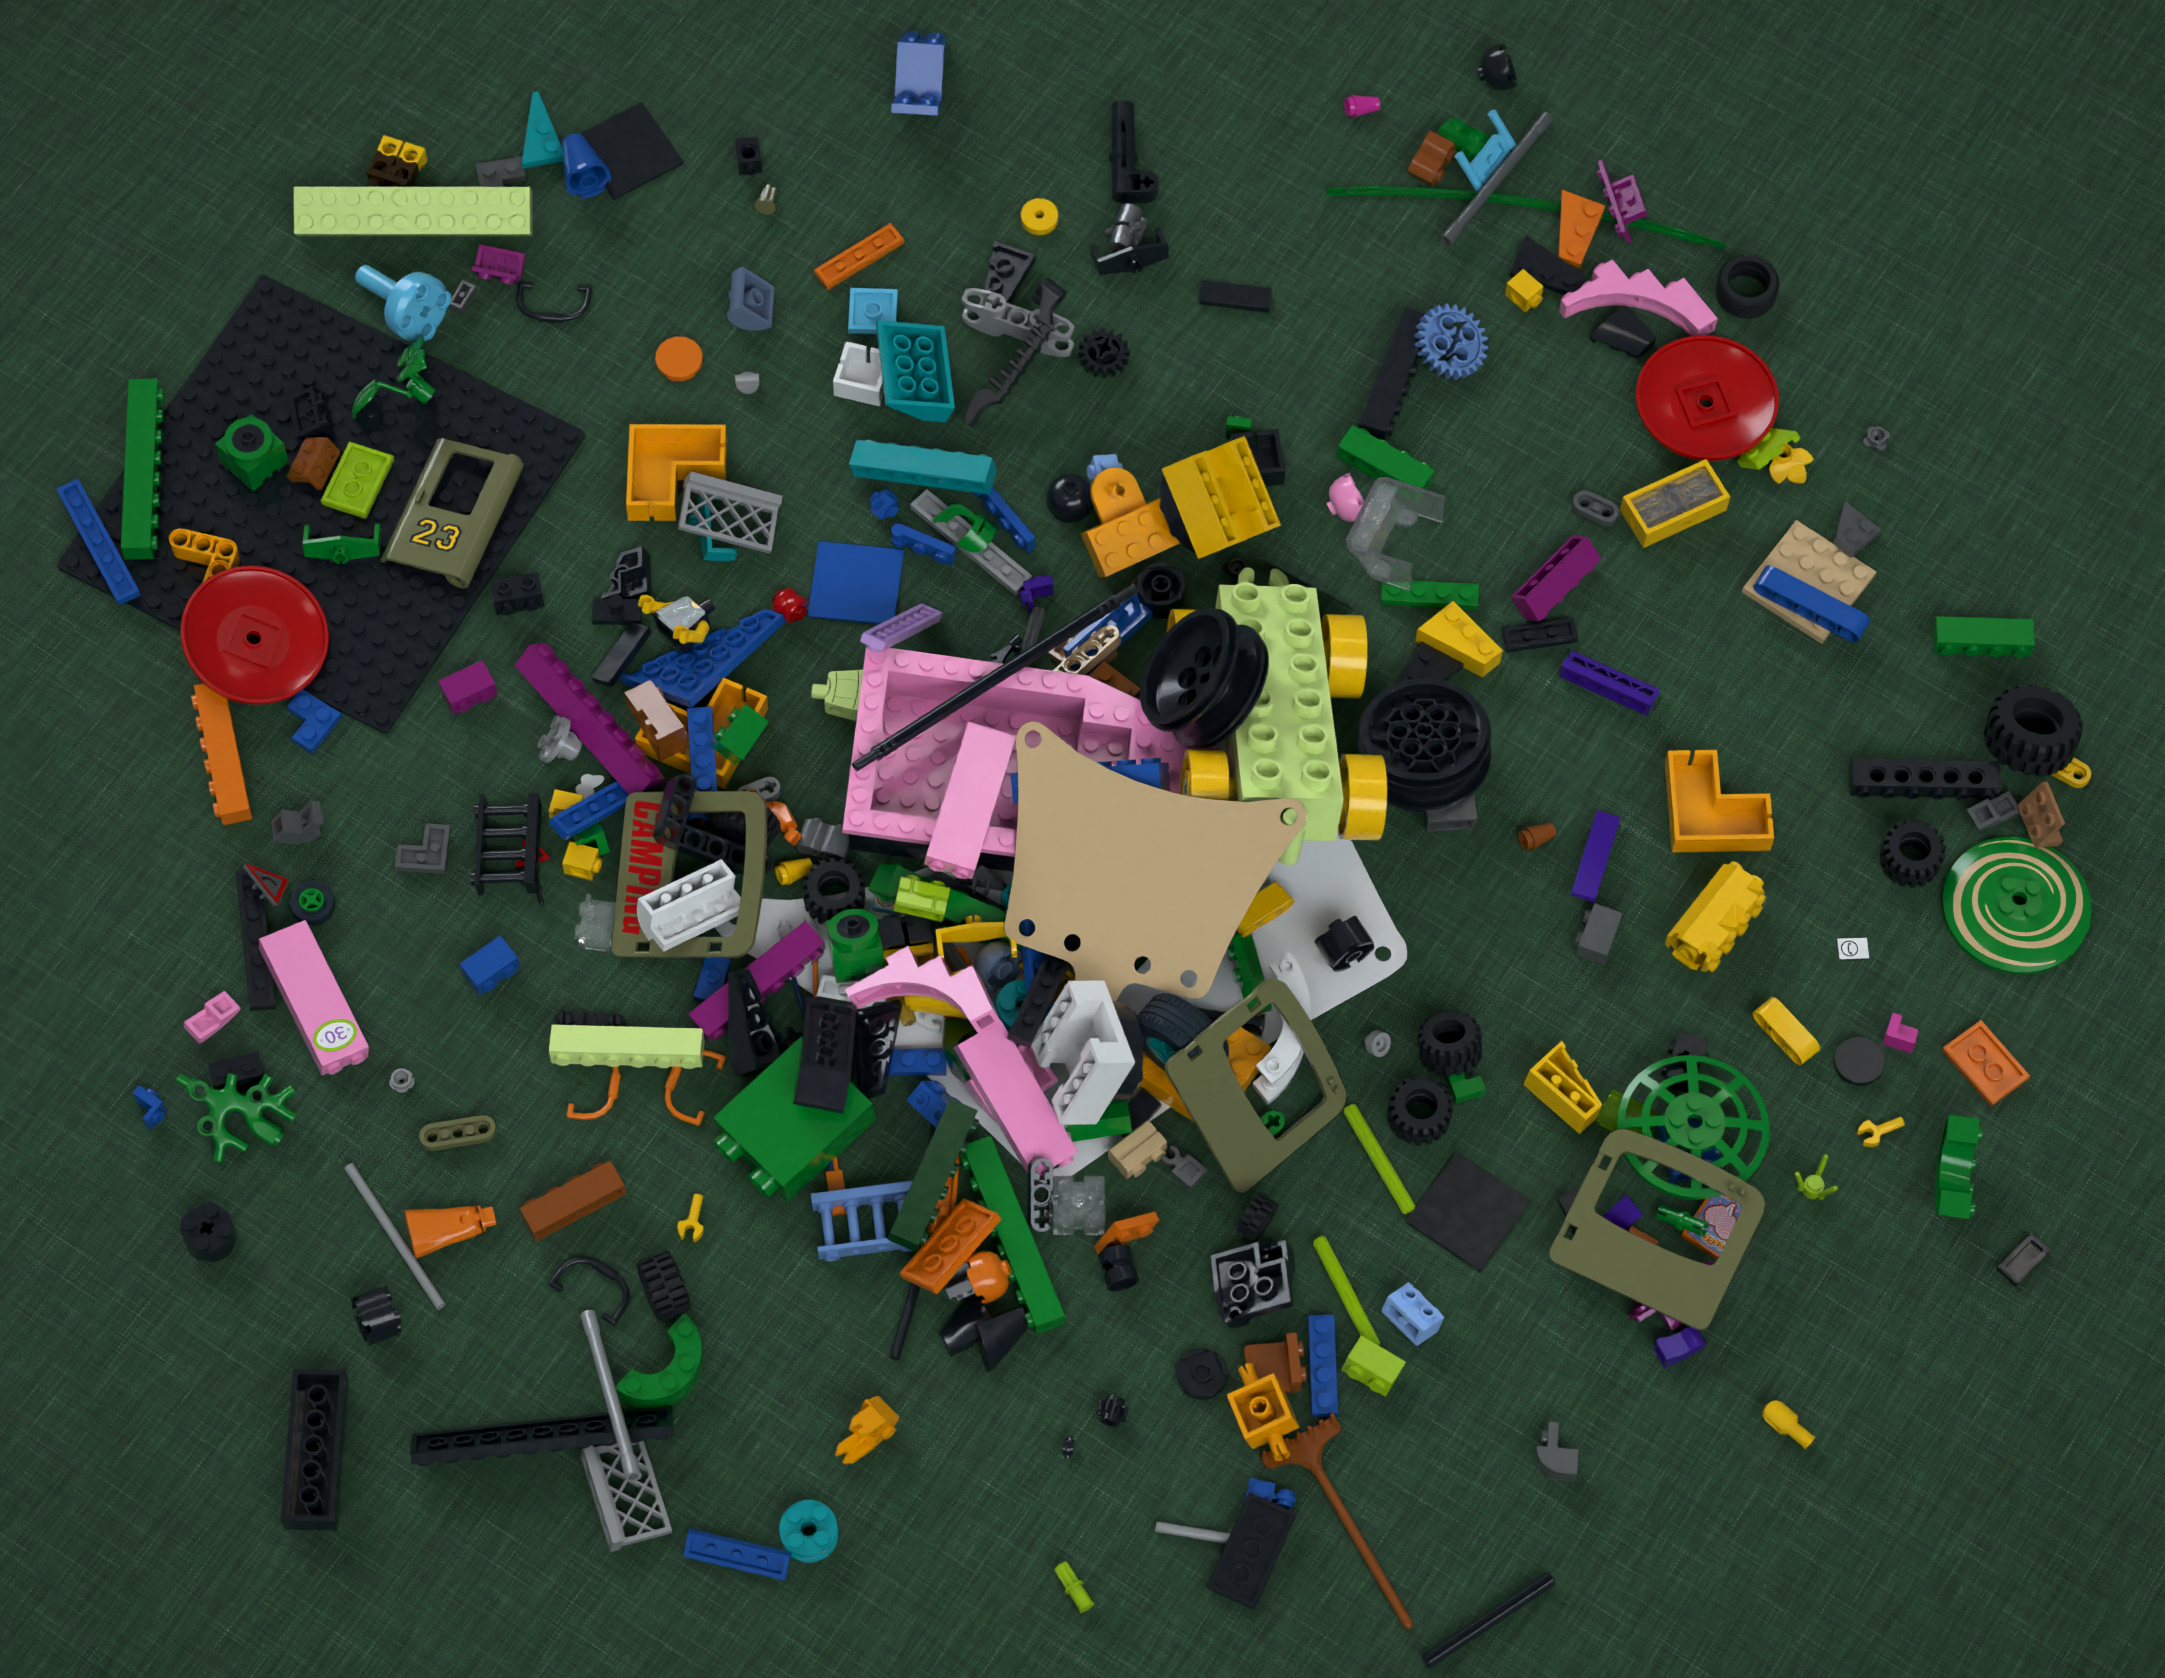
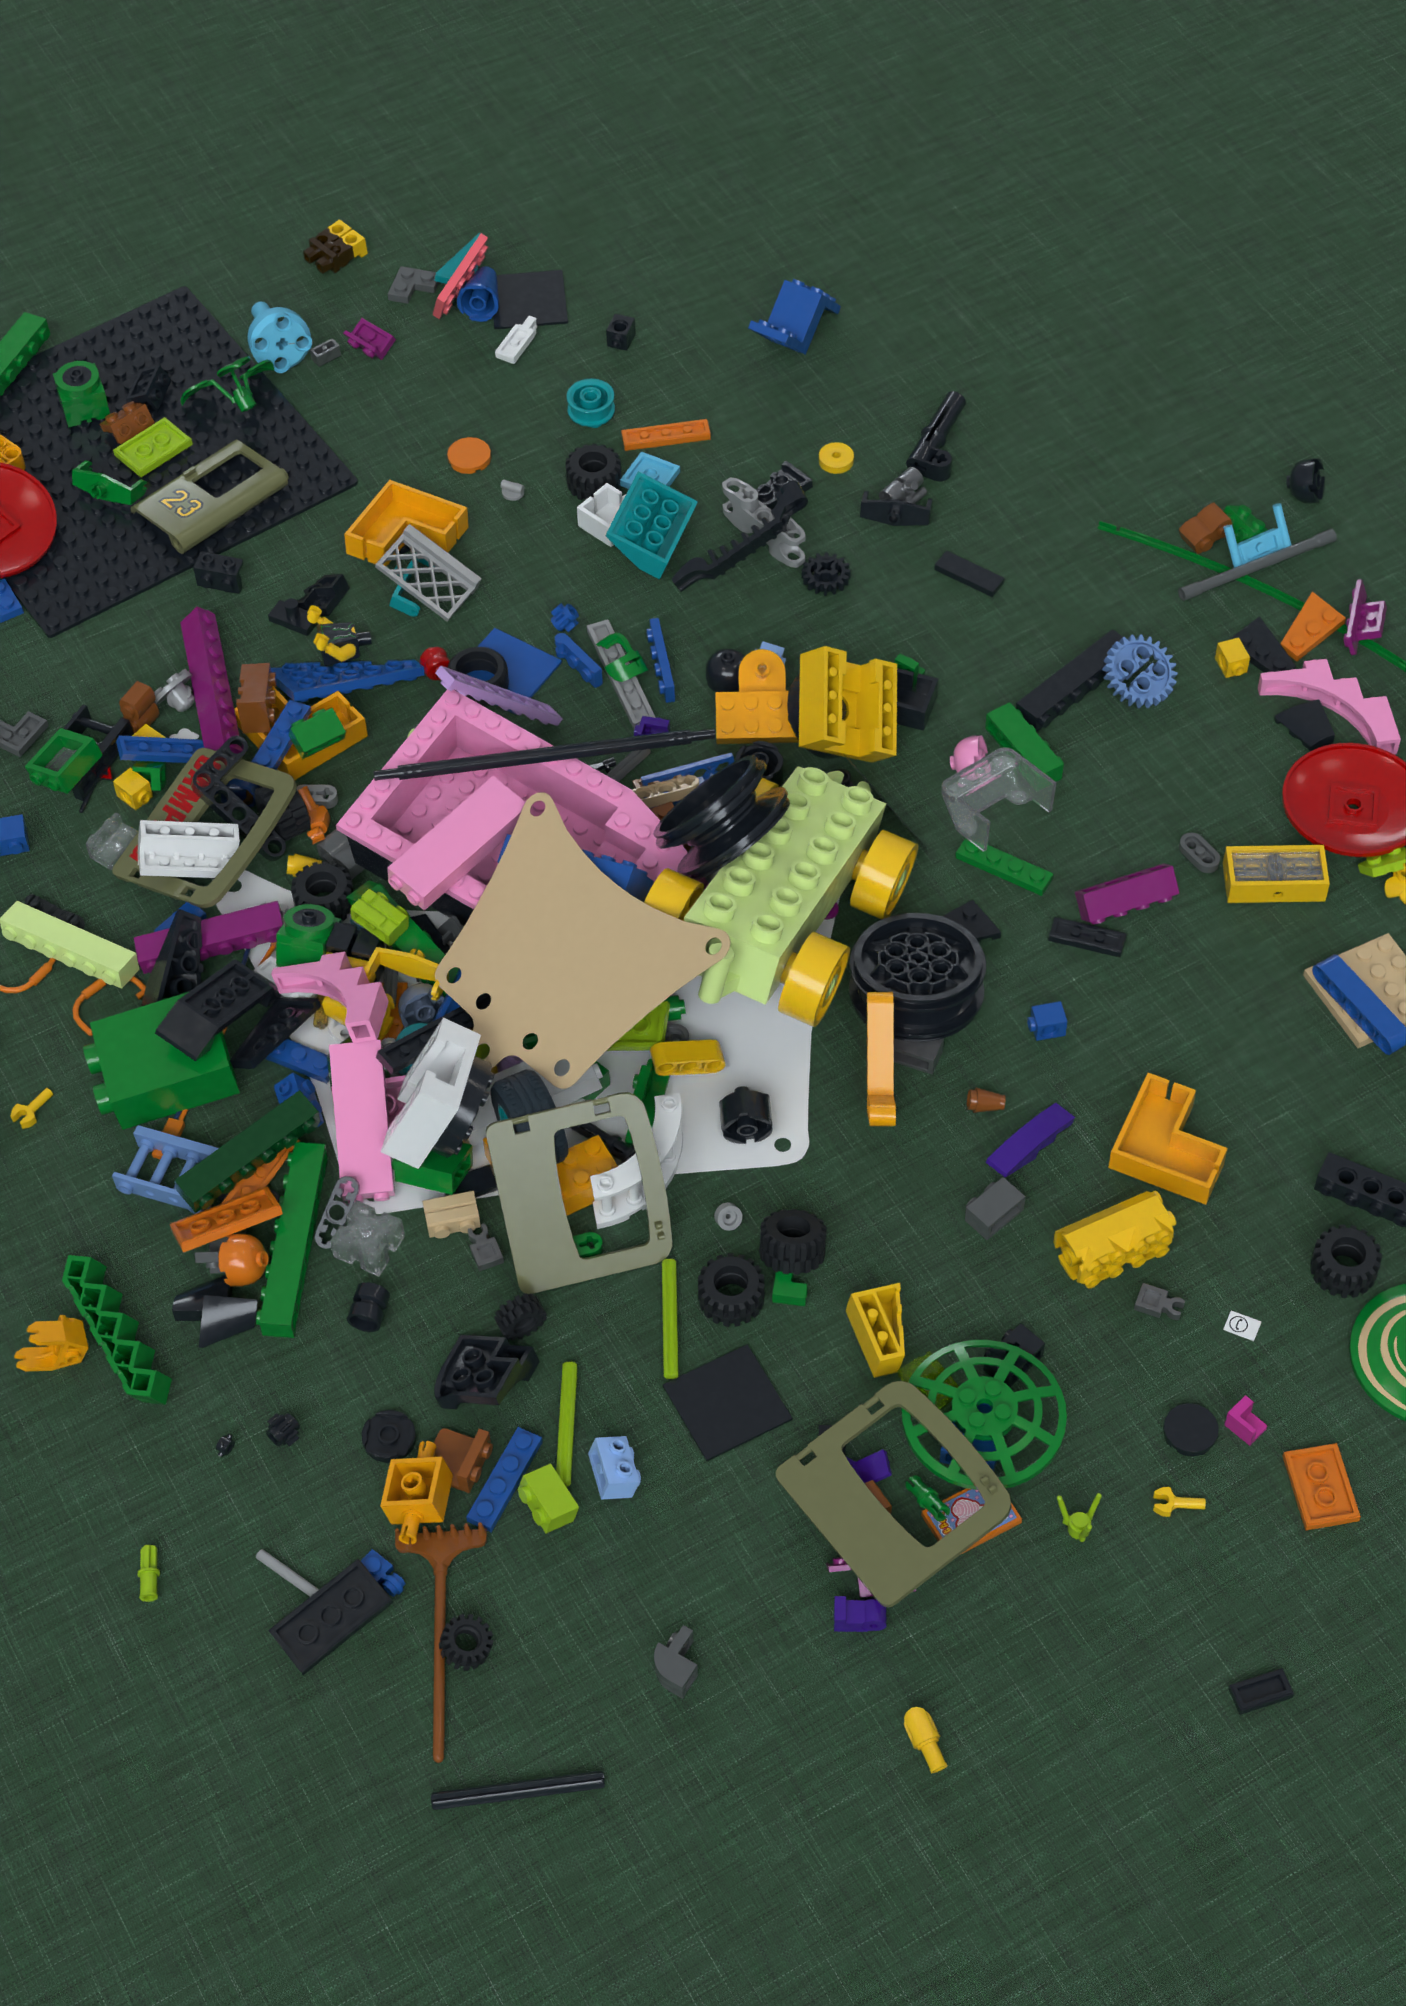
camera: 30 degrees right, 10 degrees down
(413, 211) = (326, 277): yellowish green brick -> none
(468, 687) = (133, 626): magenta piece -> none
(506, 864) = (63, 760): none -> green window
(538, 774) = (139, 706): none -> dark orange brick
(553, 317) = (391, 392): black piece -> none
(557, 155) = (462, 274): none -> coral plate
(621, 654) = (275, 648): black tile -> none
(649, 207) = (517, 341): none -> white hinge
(750, 301) = (551, 431): sand blue brick -> none
(765, 203) = (612, 370): olive piece -> none
(770, 264) = (590, 402): none -> teal wheel
(818, 315) = (591, 469): none -> black tyre
(834, 583) = (481, 659): none -> black tyre
(904, 1322) = (152, 1273): black bar -> none
(910, 1391) = (114, 1330): none -> green brick
(923, 466) = (613, 598): teal brick -> none
(1127, 1230) = (398, 1277): orange wing -> none
(1360, 105) = (1167, 469): dark pink cone -> none
(1387, 1510) = (459, 1656): none -> black tyre
(1439, 847) = (880, 1059): none -> light orange beam
(1461, 639) = (1008, 909): yellow wedge -> none
(1551, 734) = (1047, 1021): none -> blue brick
(1607, 686) = (1127, 1004): dark purple fence -> none
(1773, 960) = (1155, 1301): none -> flat silver plate
(1786, 1031) = (1131, 1370): yellow beam -> none
(1954, 1166) = (1233, 1566): green brick -> none

